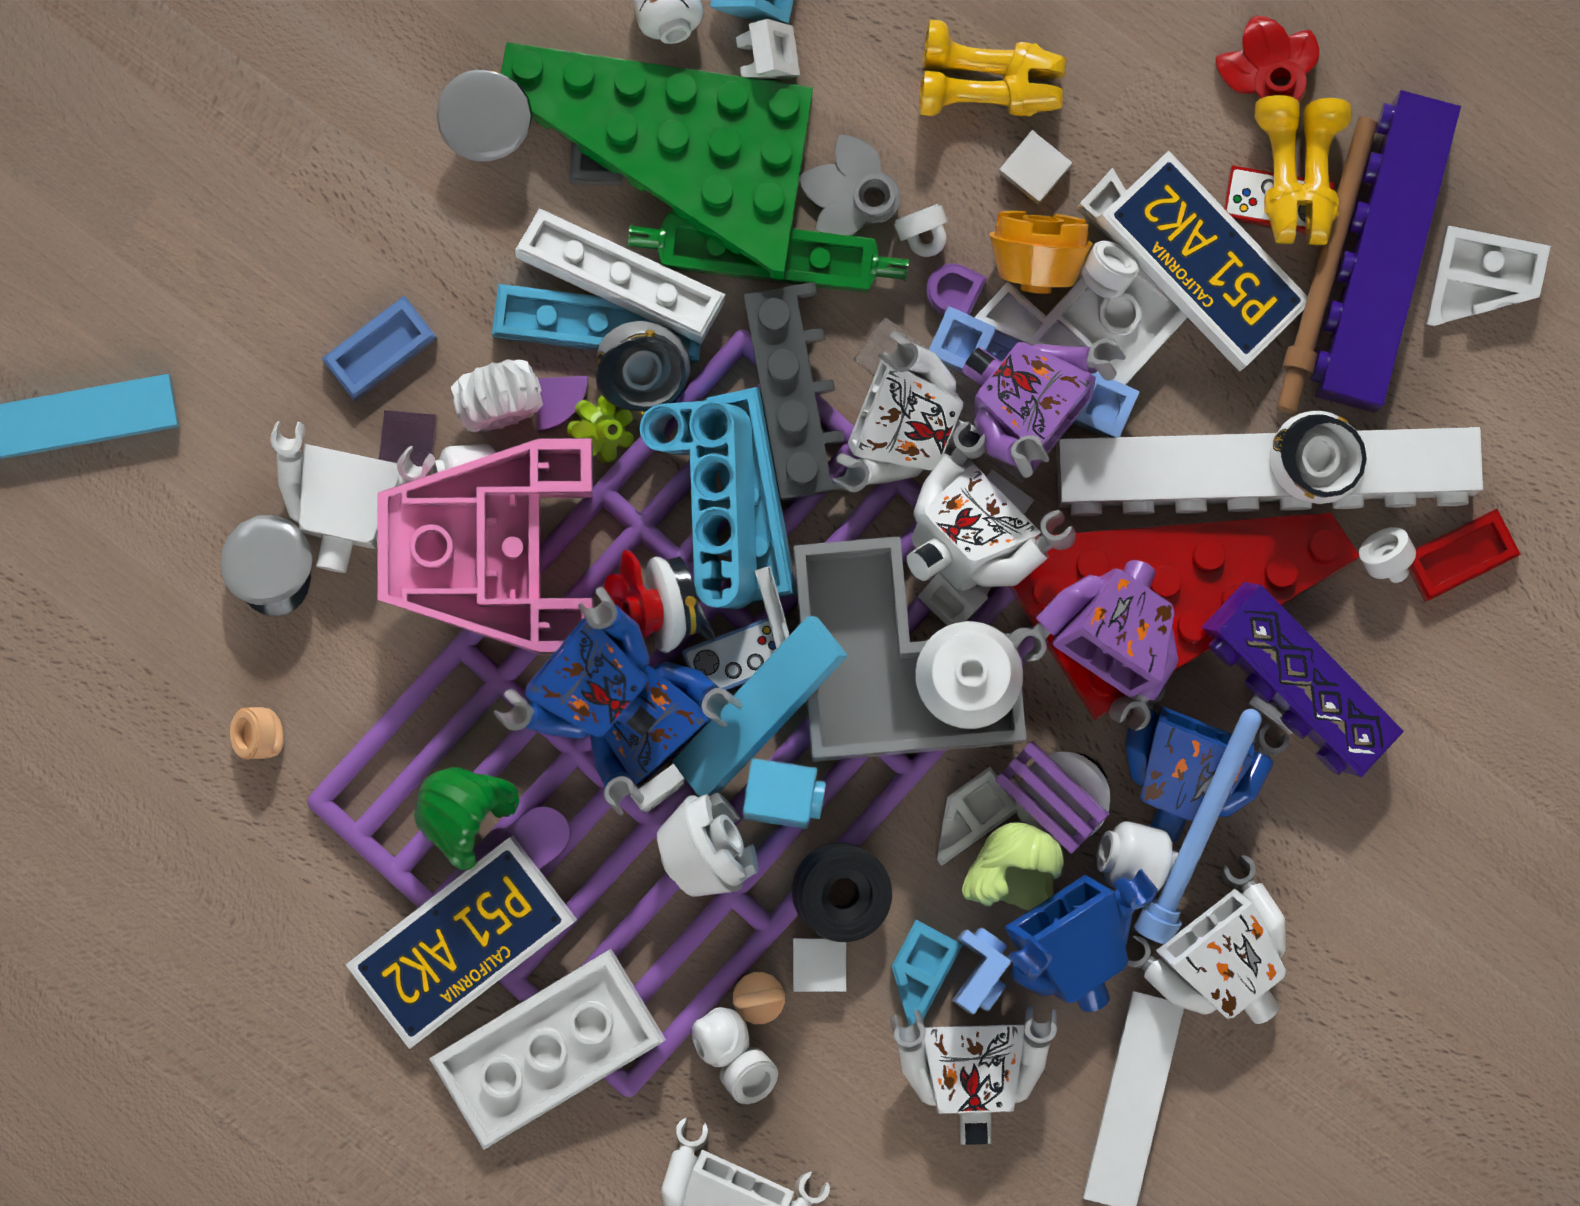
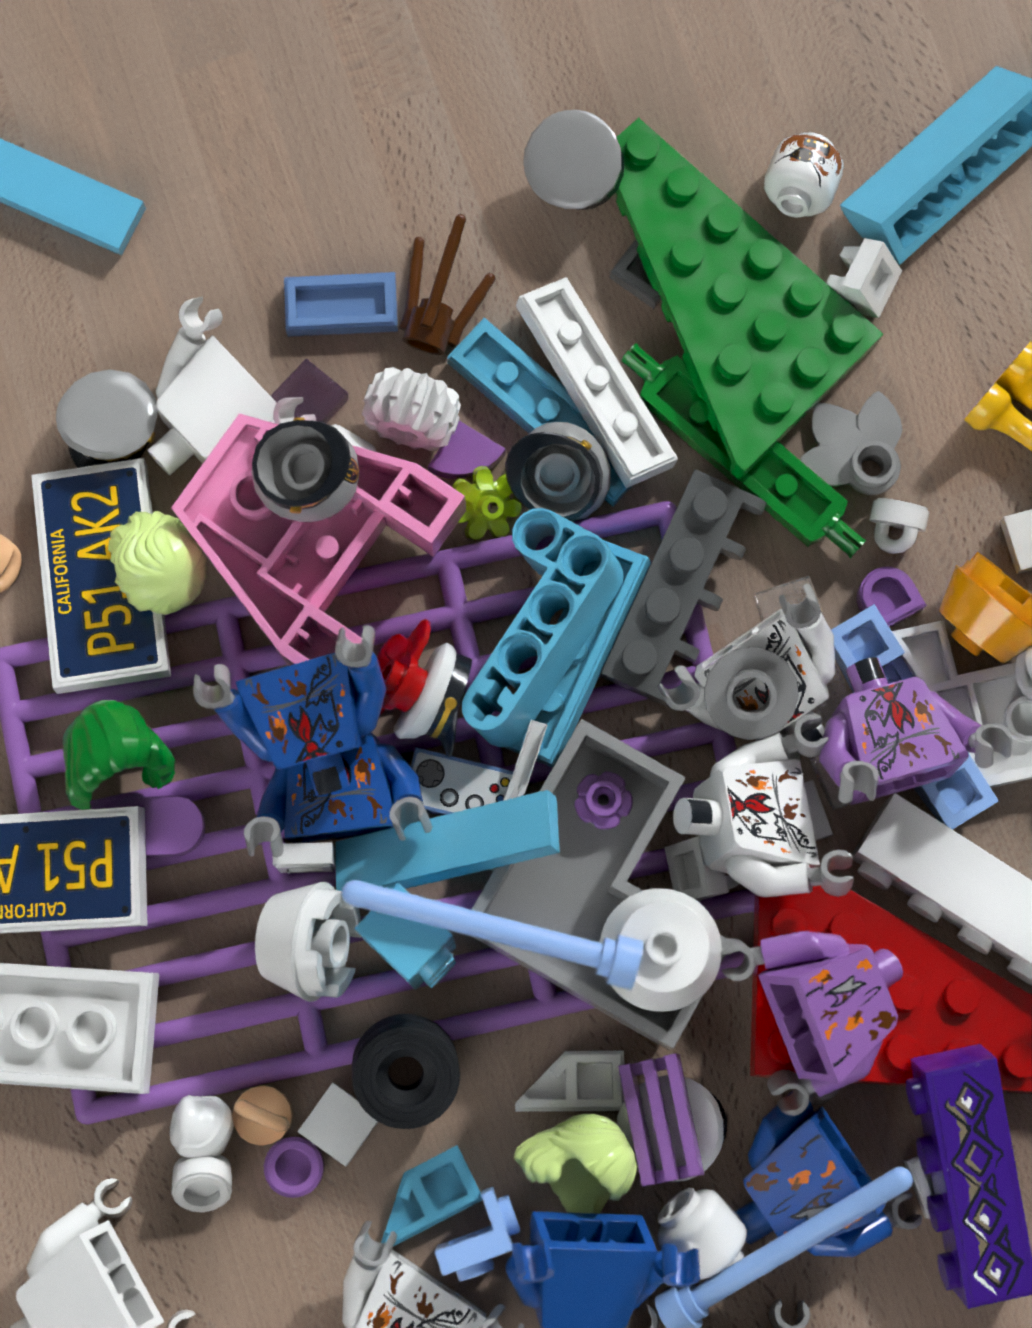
camera: 35 degrees right, 5 degrees down
(349, 685) = (90, 625): none -> tile
(389, 646) = (157, 562): none -> yellowish green hair
(460, 503) = (305, 470): none -> light grey piece
(461, 317) = (430, 324): none -> reddish brown plant
(808, 1018) = (294, 1167): none -> medium lavender tile
(849, 579) = (606, 784): none -> medium lavender plate
(893, 417) = (757, 664): none -> light grey piece
(942, 706) = (612, 958): none -> light blue piece

